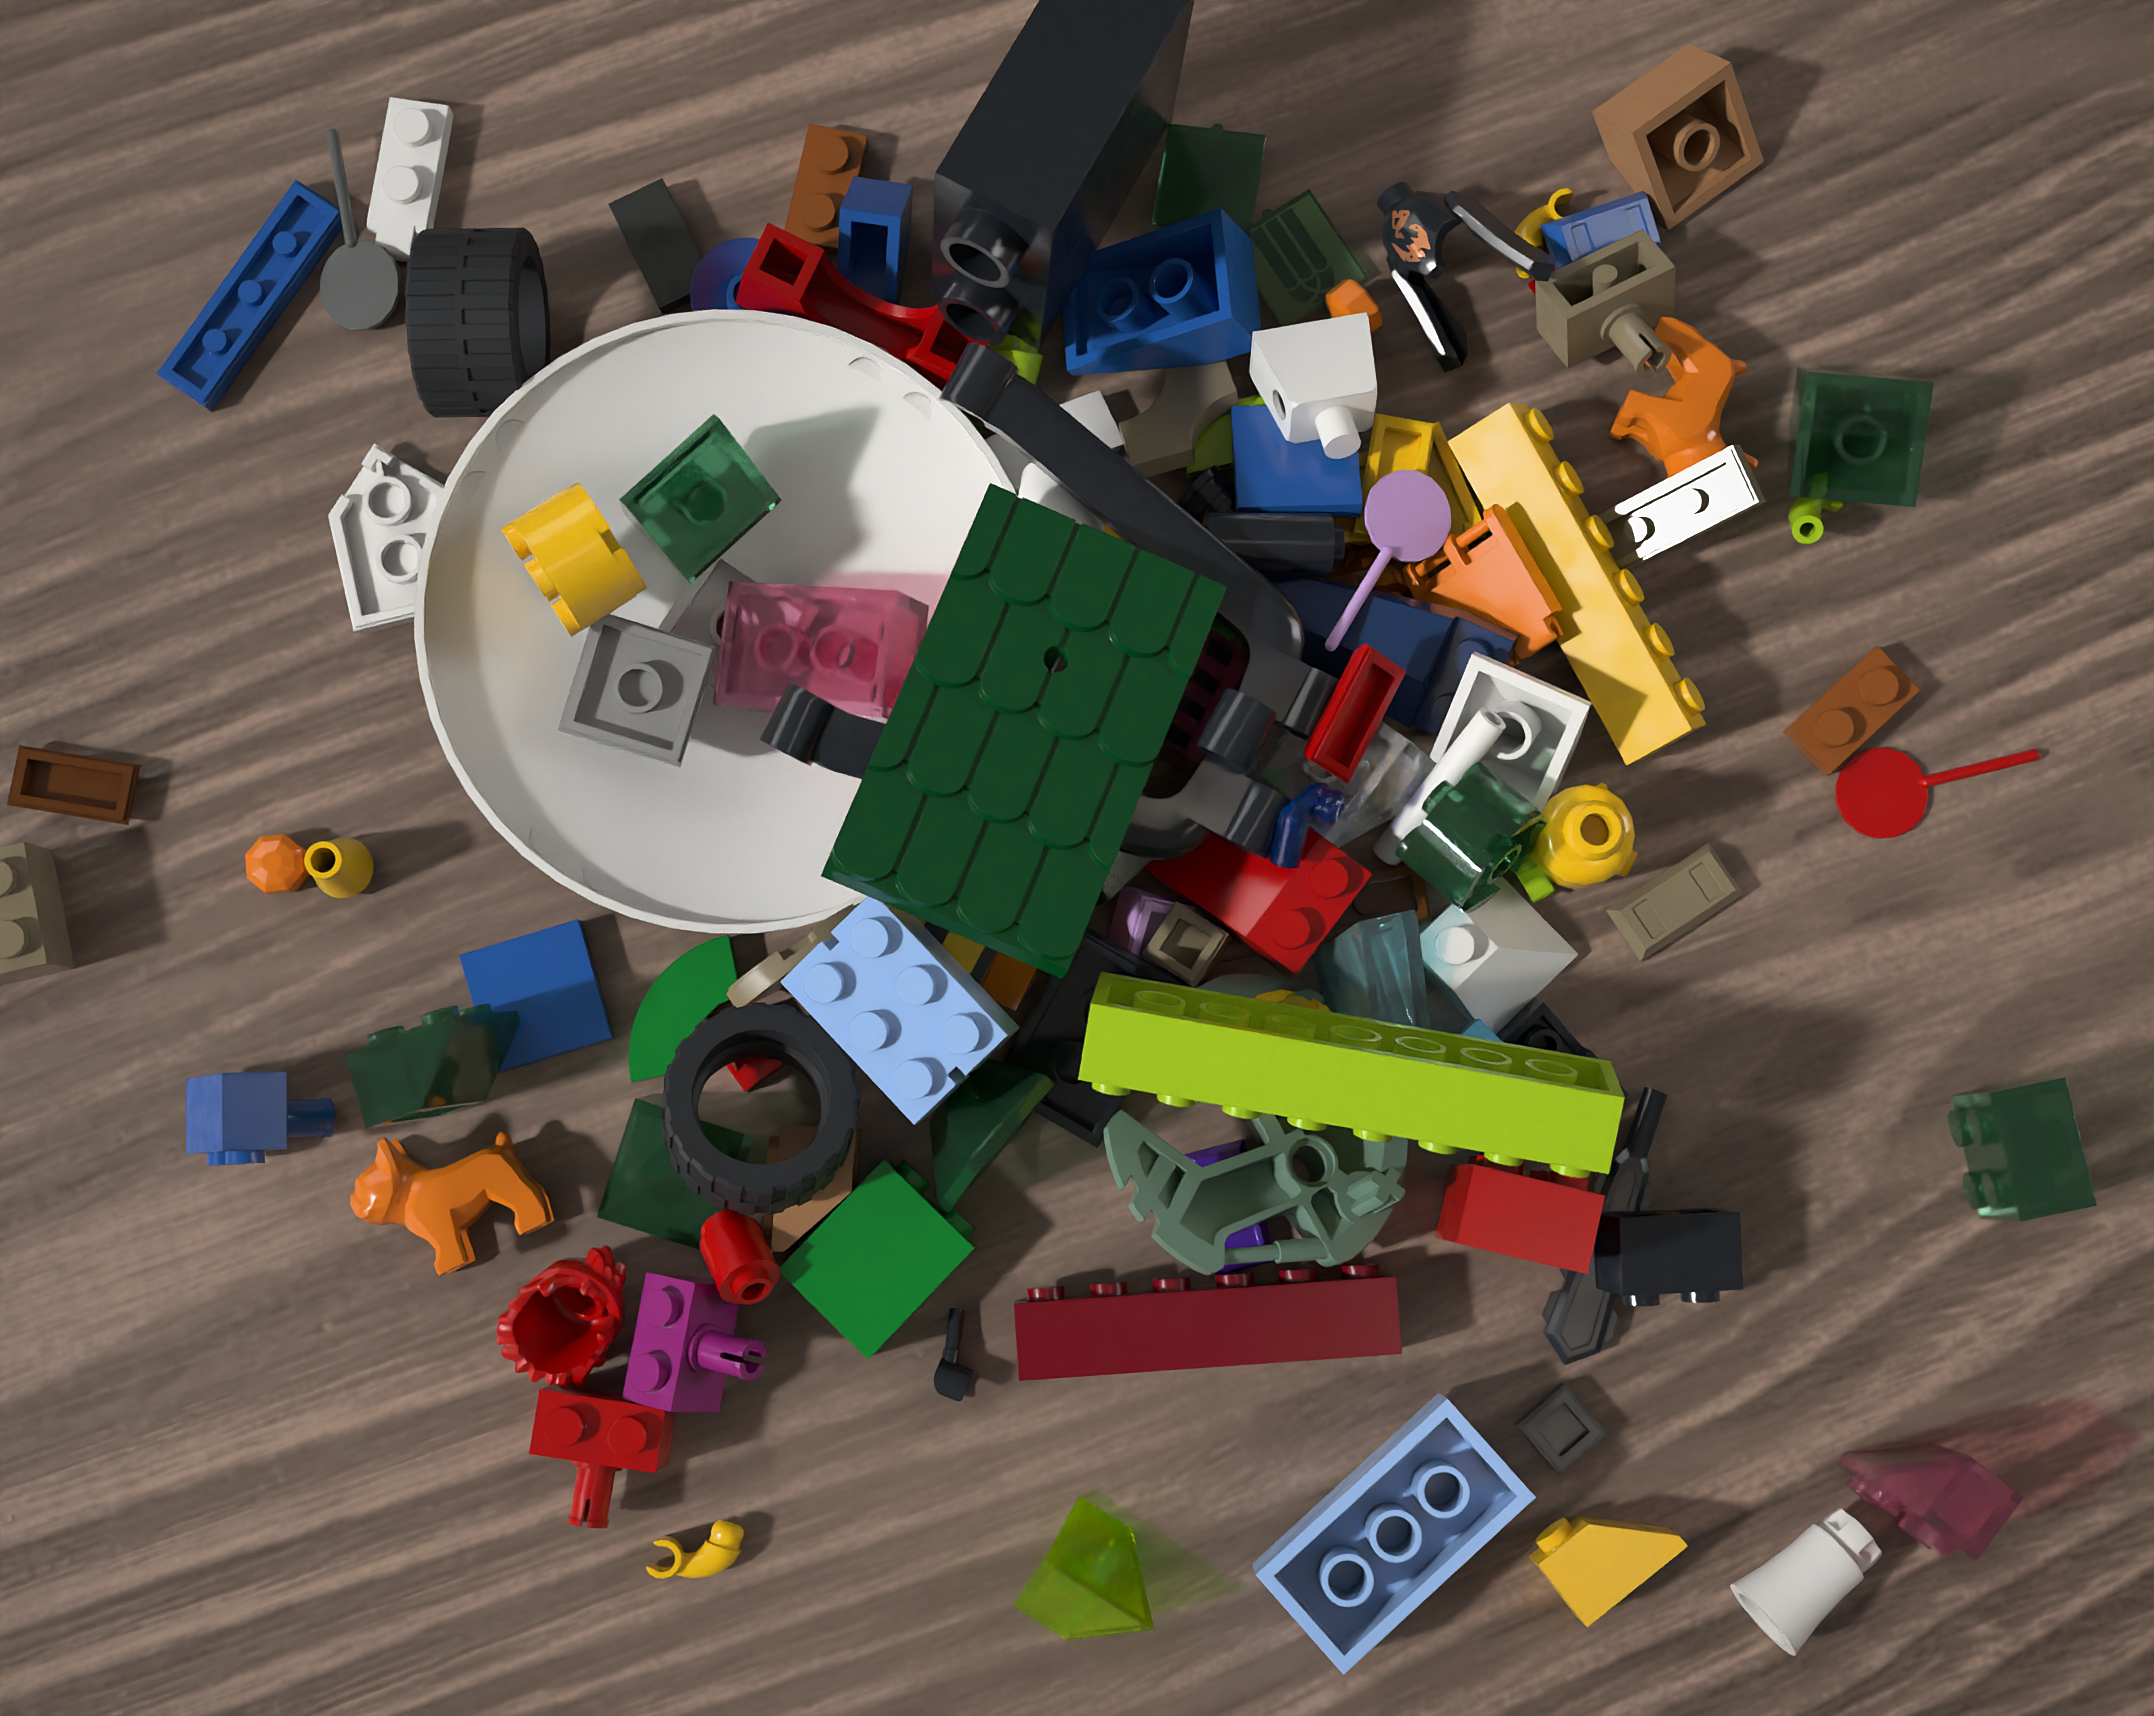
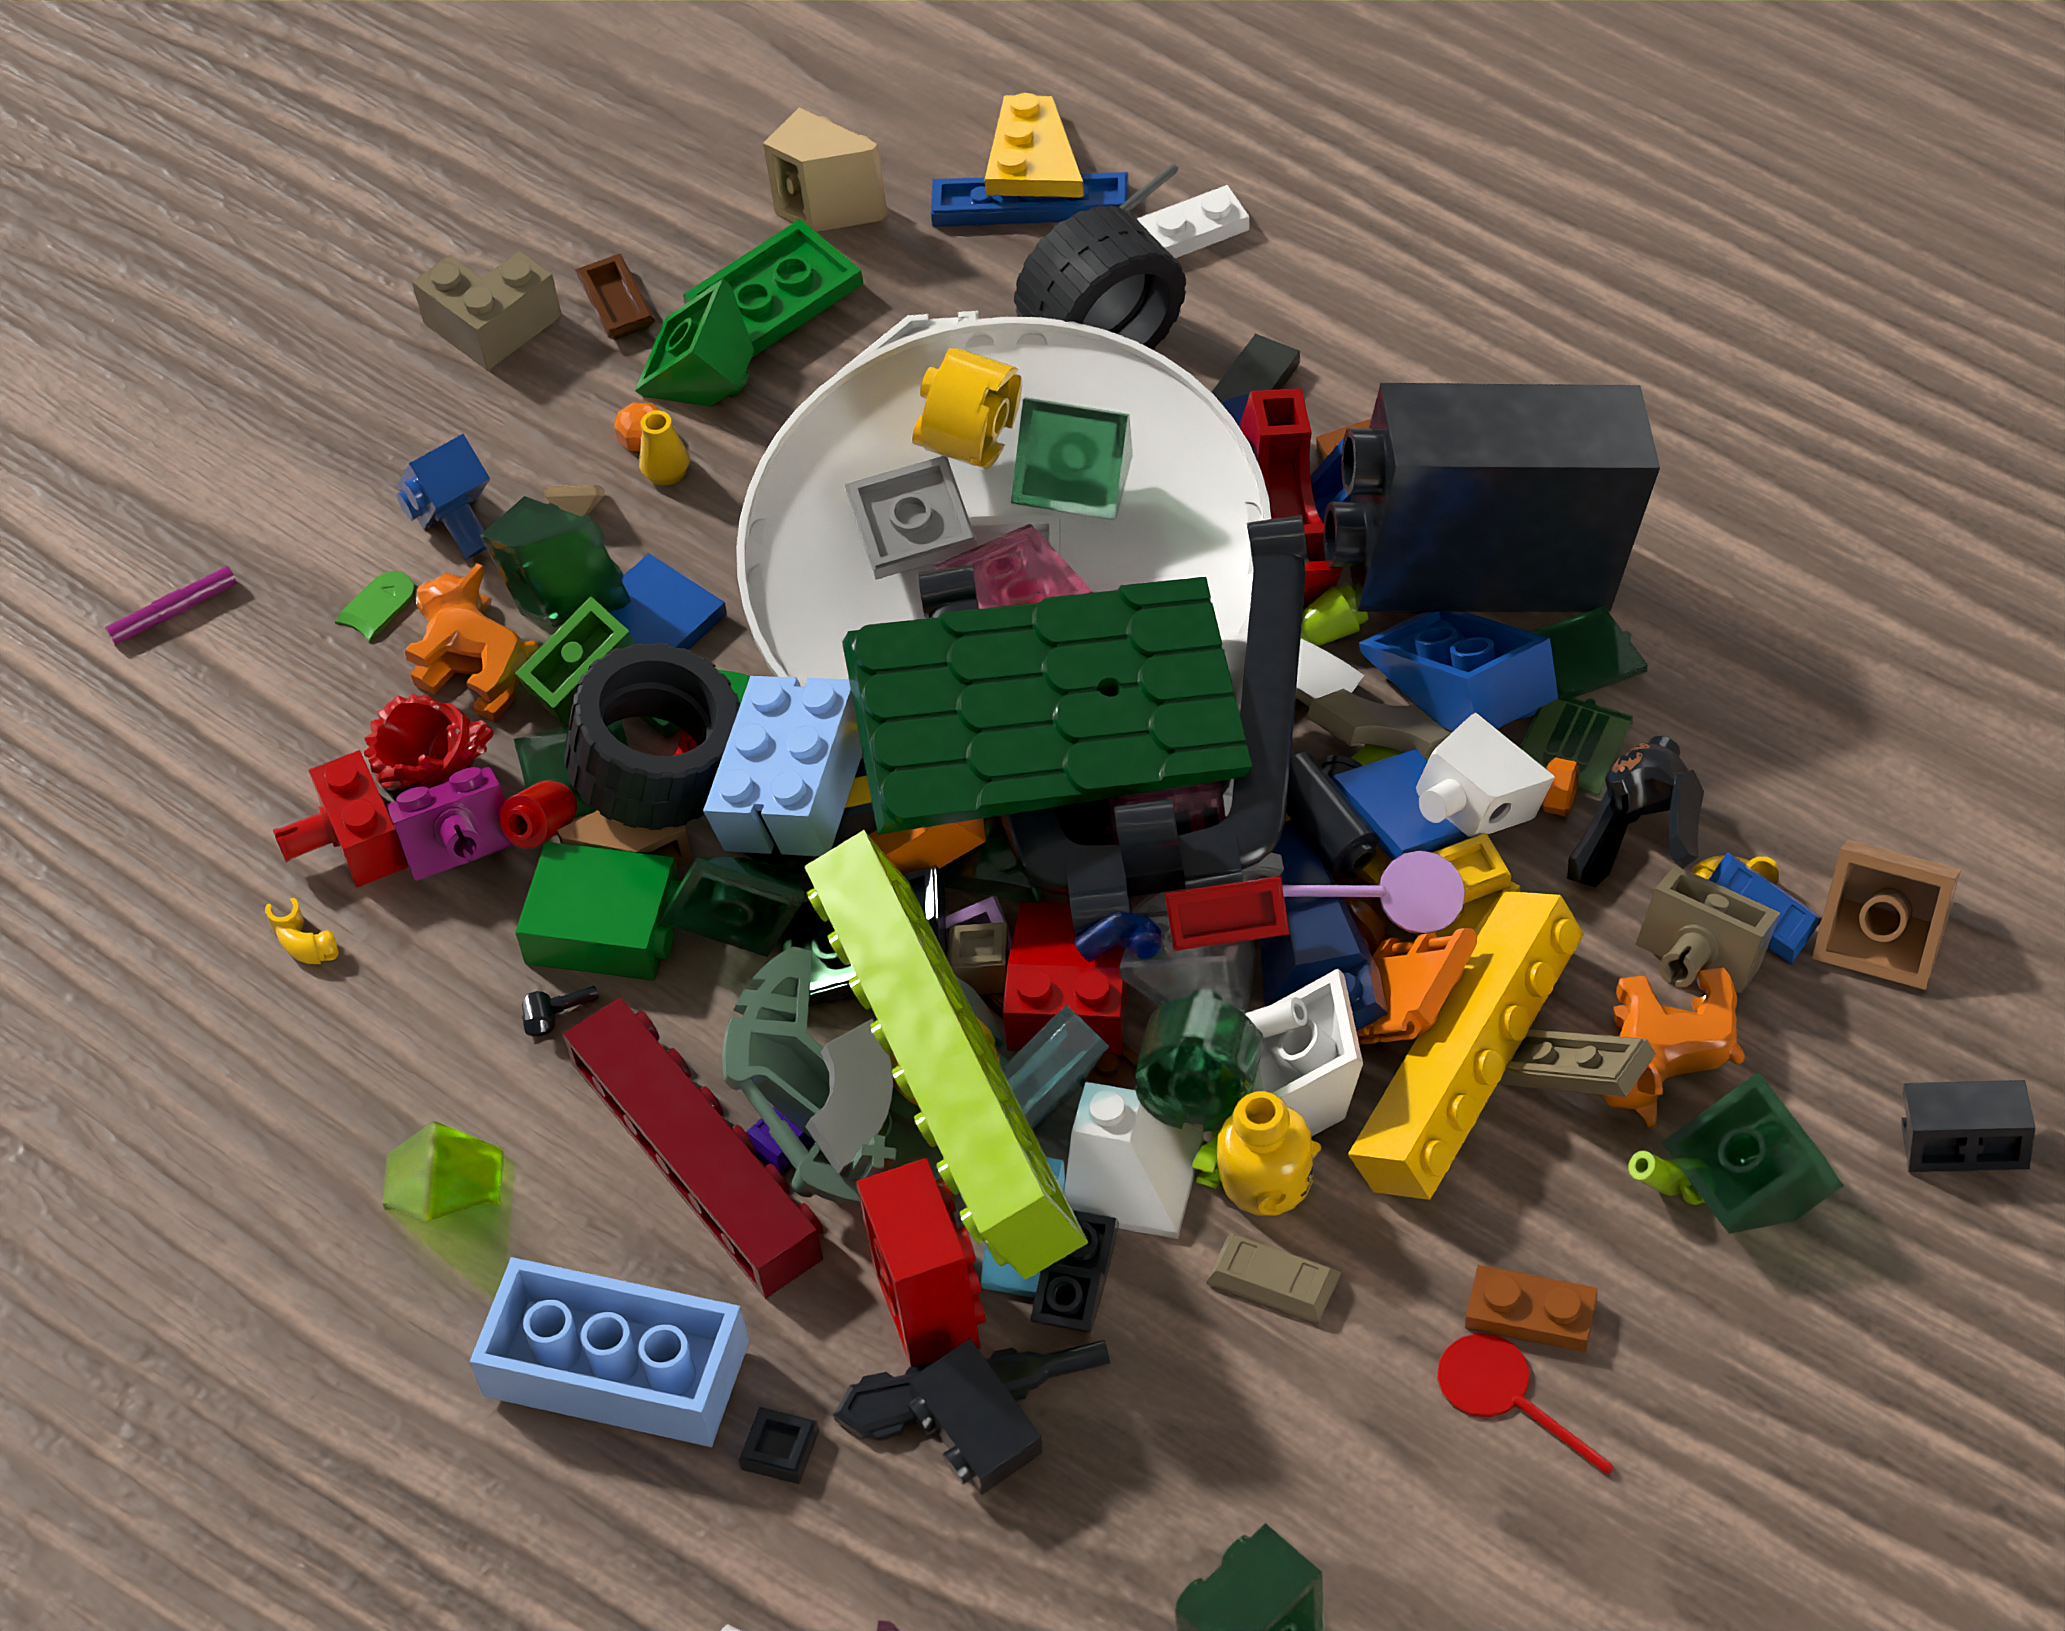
camera: 55 degrees right, 30 degrees down
(83, 482) = (824, 173): none -> tan slope
(170, 1463) = (171, 605): none -> magenta piece
(191, 624) = (785, 282): none -> green plate
(198, 253) = (1031, 151): none -> yellow wing
(224, 749) = (699, 351): none -> green slope
(318, 1251) = (378, 604): none -> bright green piece
(329, 984) = (575, 499): none -> tan slope
(570, 1112) = (560, 662): none -> bright green brick
(1300, 1166) = (857, 1098): none -> light grey tile
(1601, 1560) = (683, 1526): yellow slope -> none
(1929, 232) = (1967, 1126): none -> black hinge

